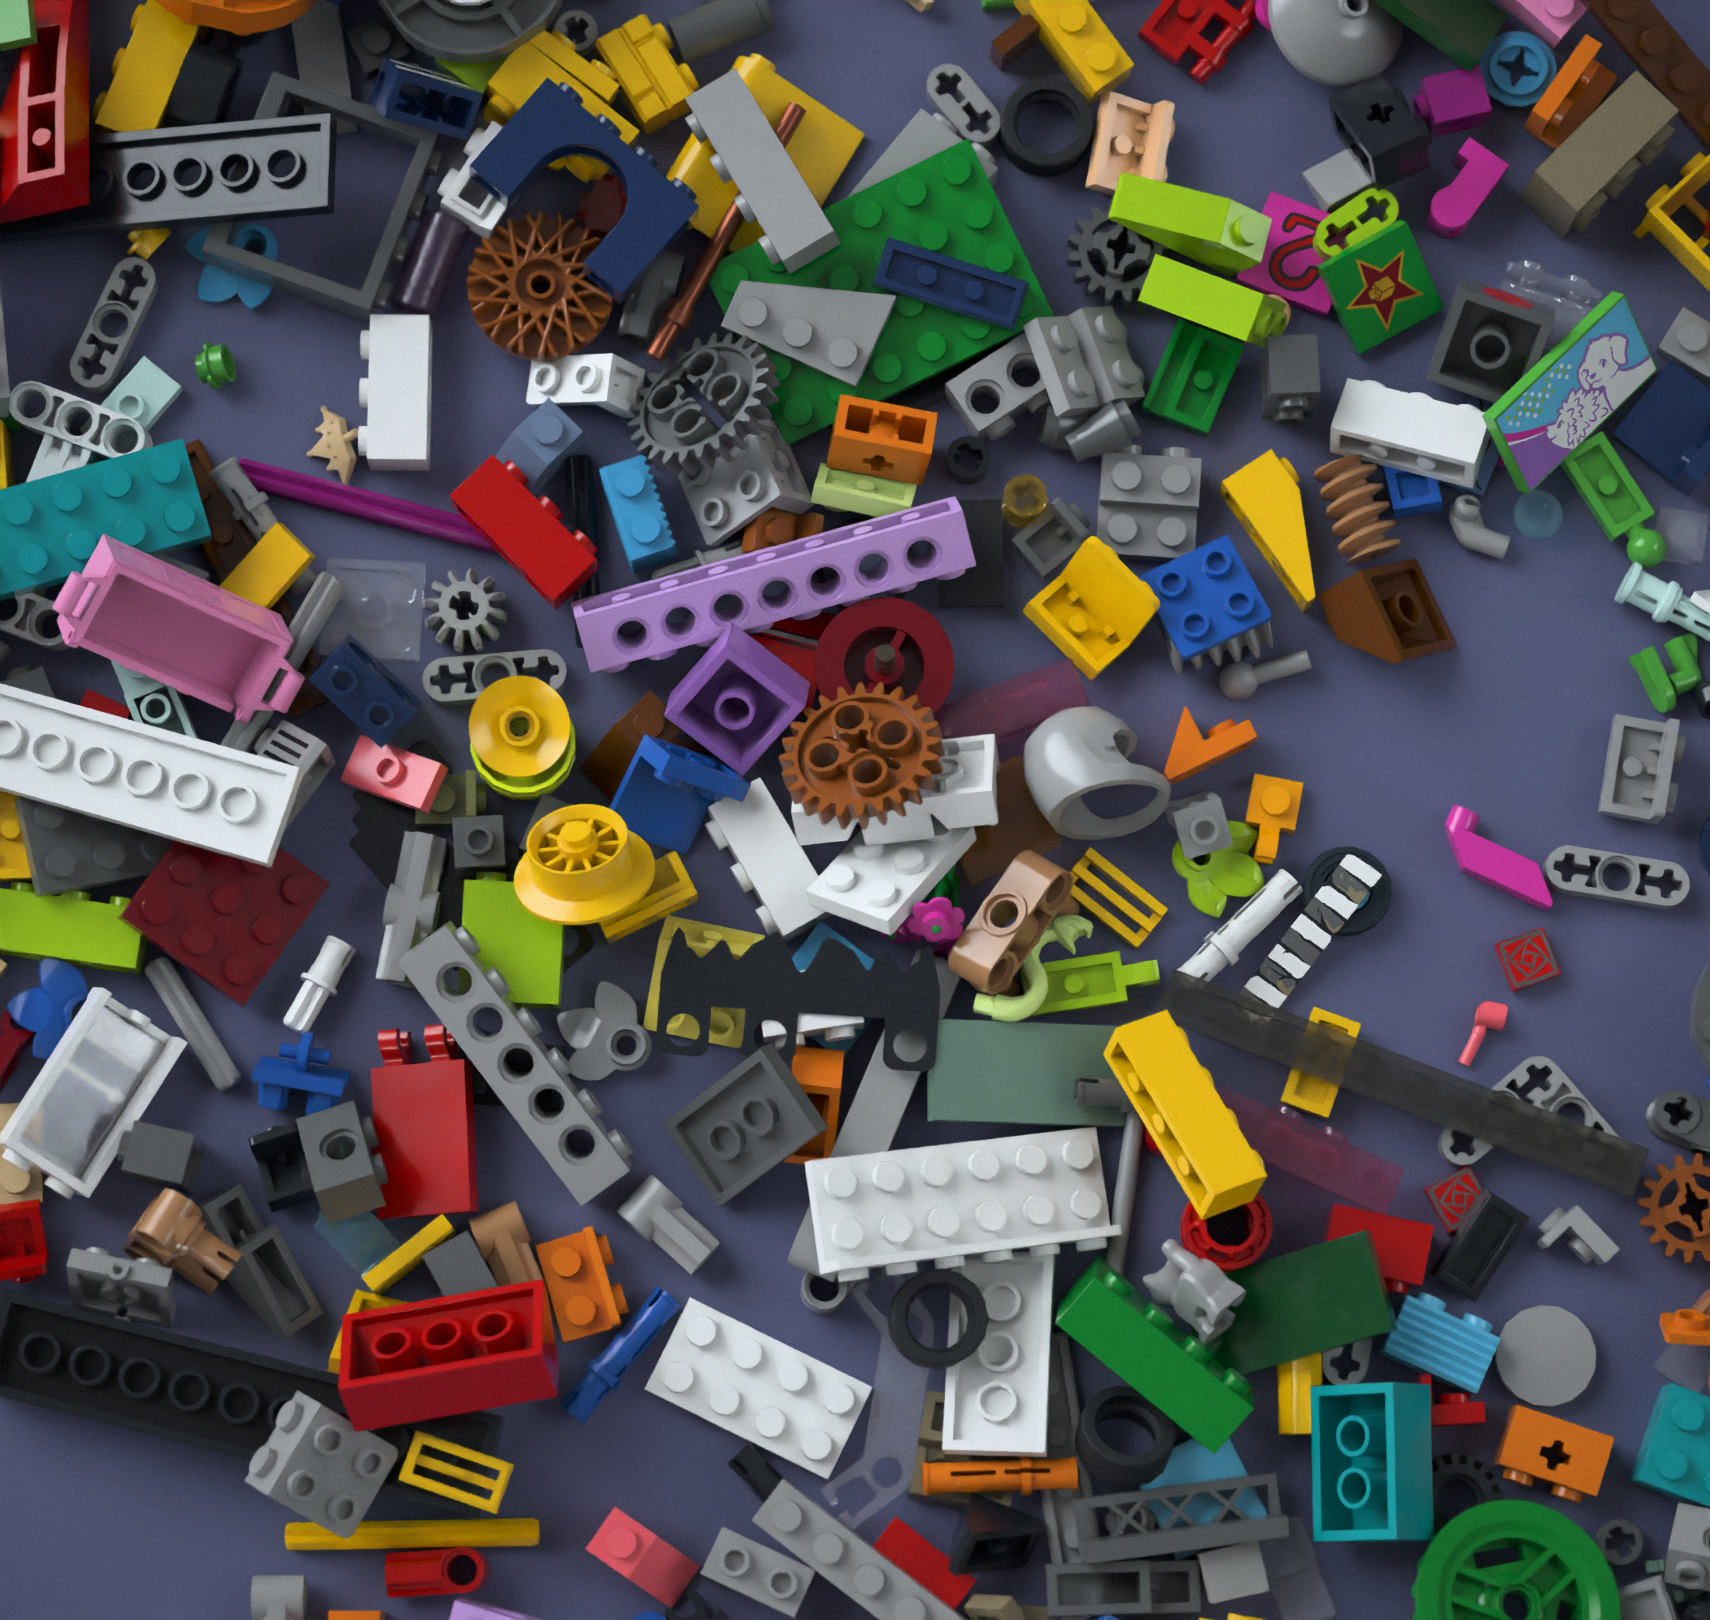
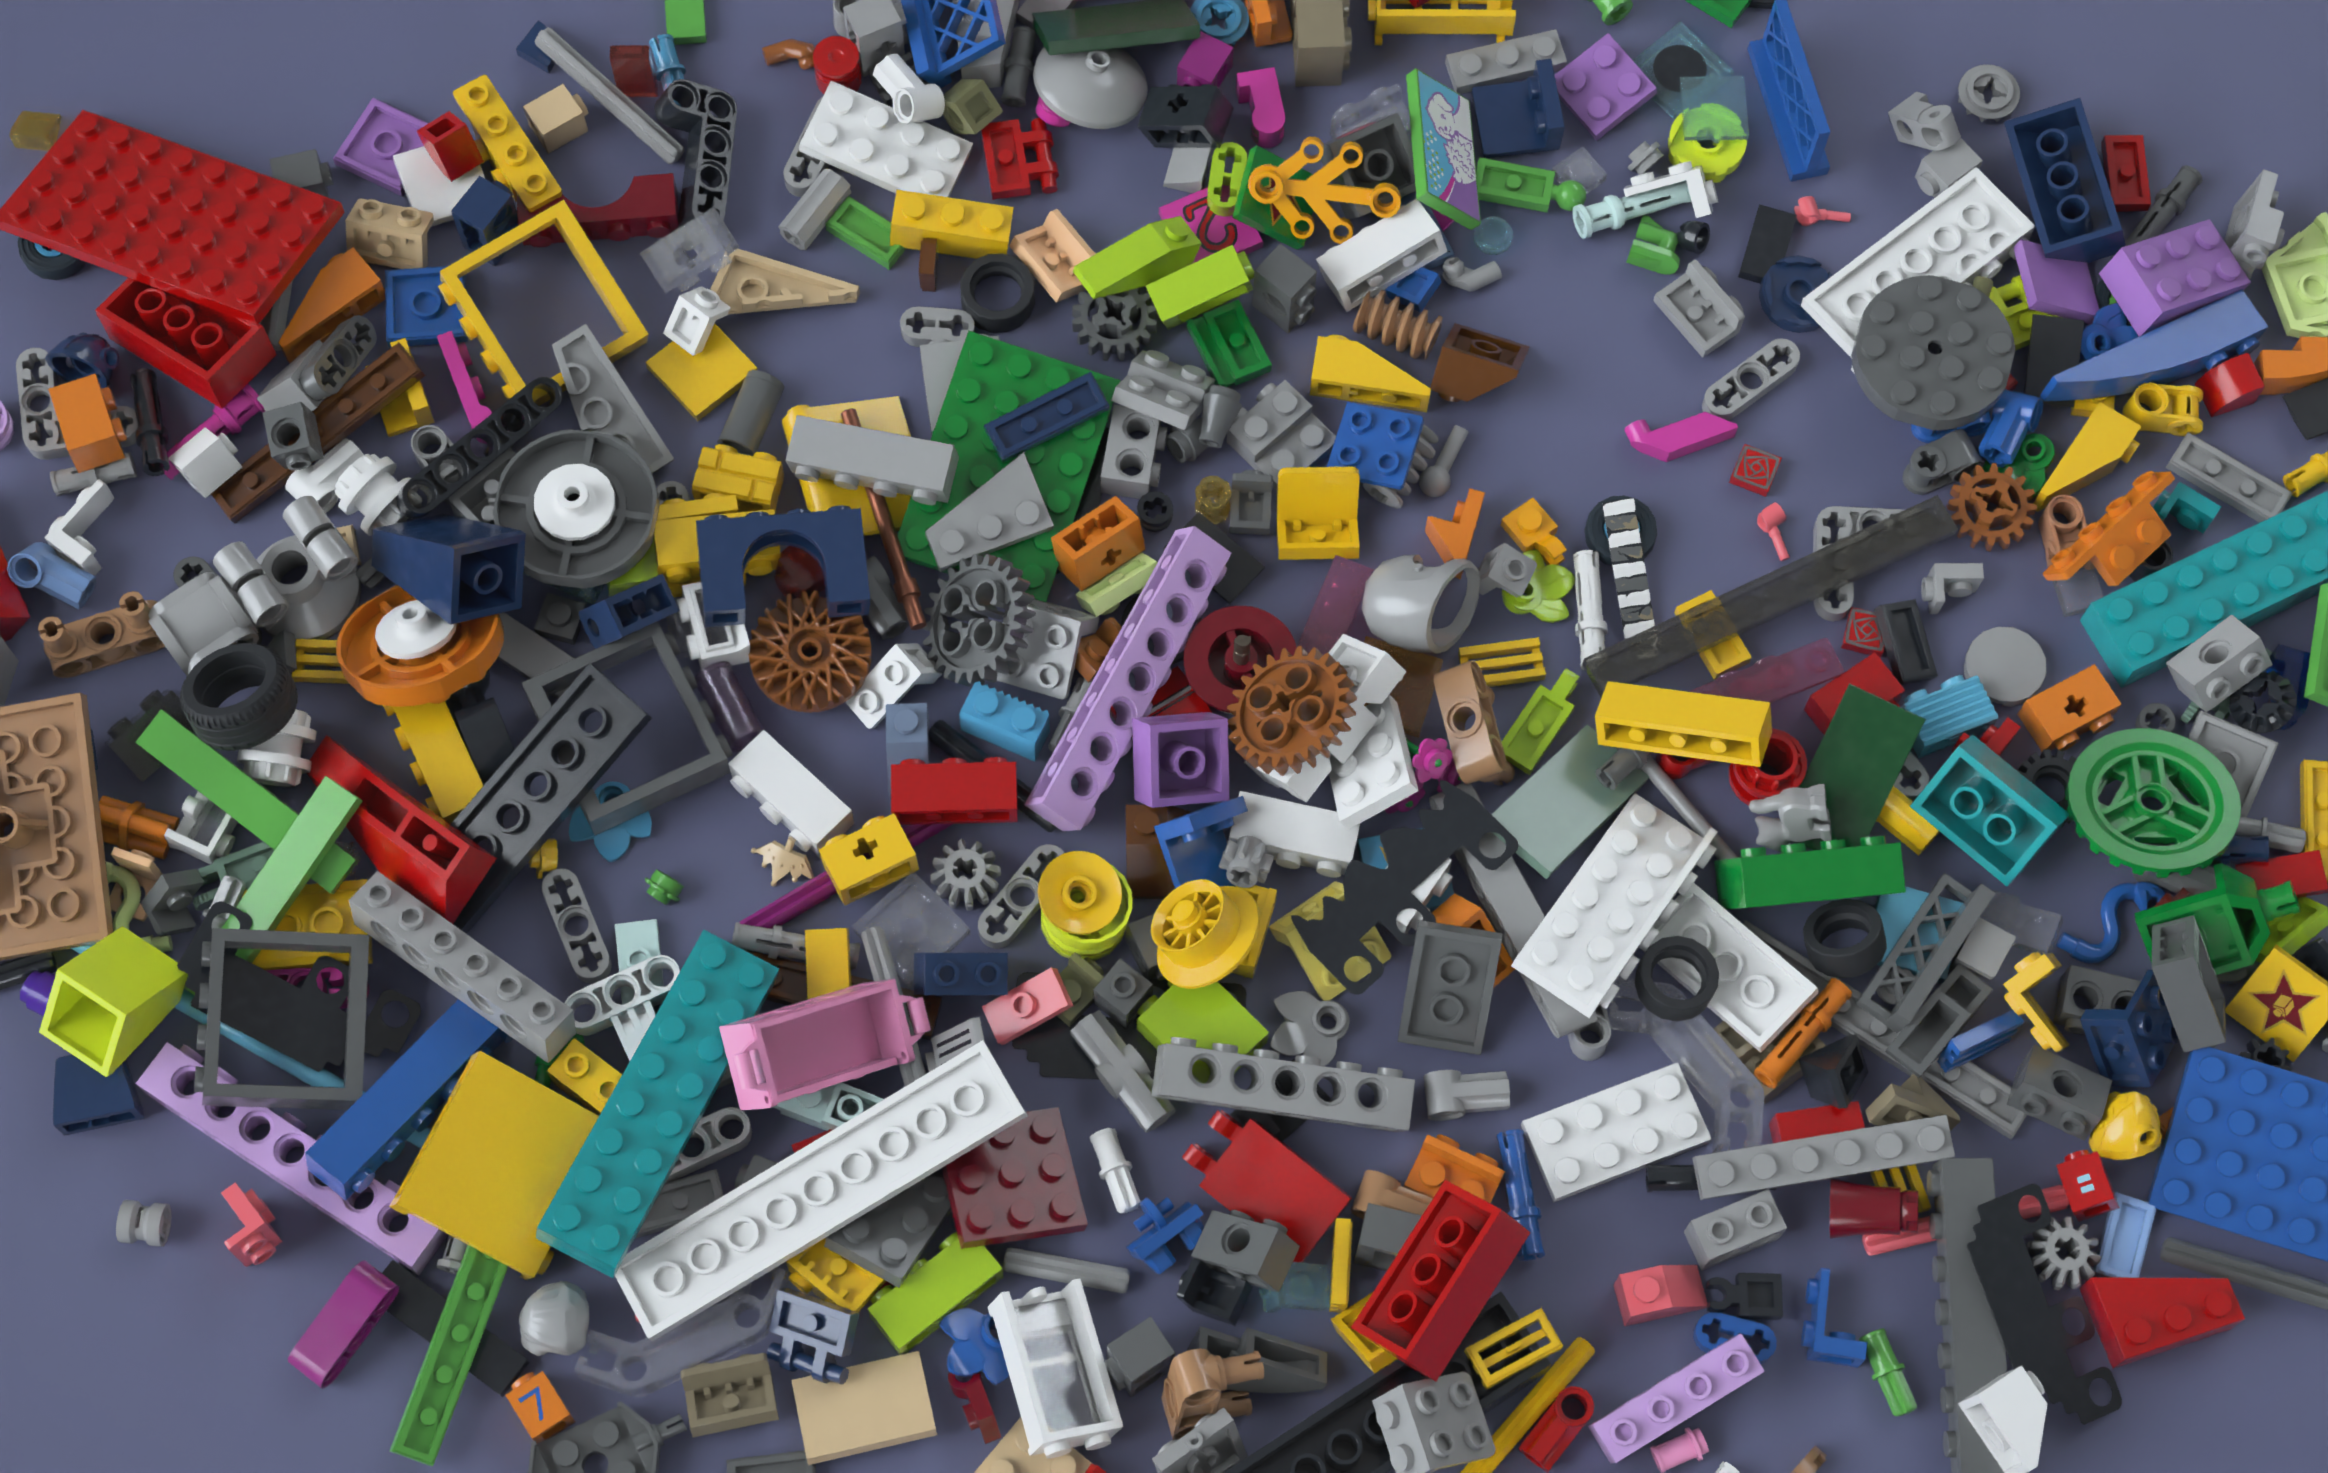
camera: 45 degrees left, 10 degrees down
(411, 534) = (855, 875): none -> yellow brick
(697, 842) = (1246, 861): none -> light grey gear
(1009, 1009) = (1526, 764): yellowish green animal -> none
(1411, 319) = (1318, 190): none -> light orange plant

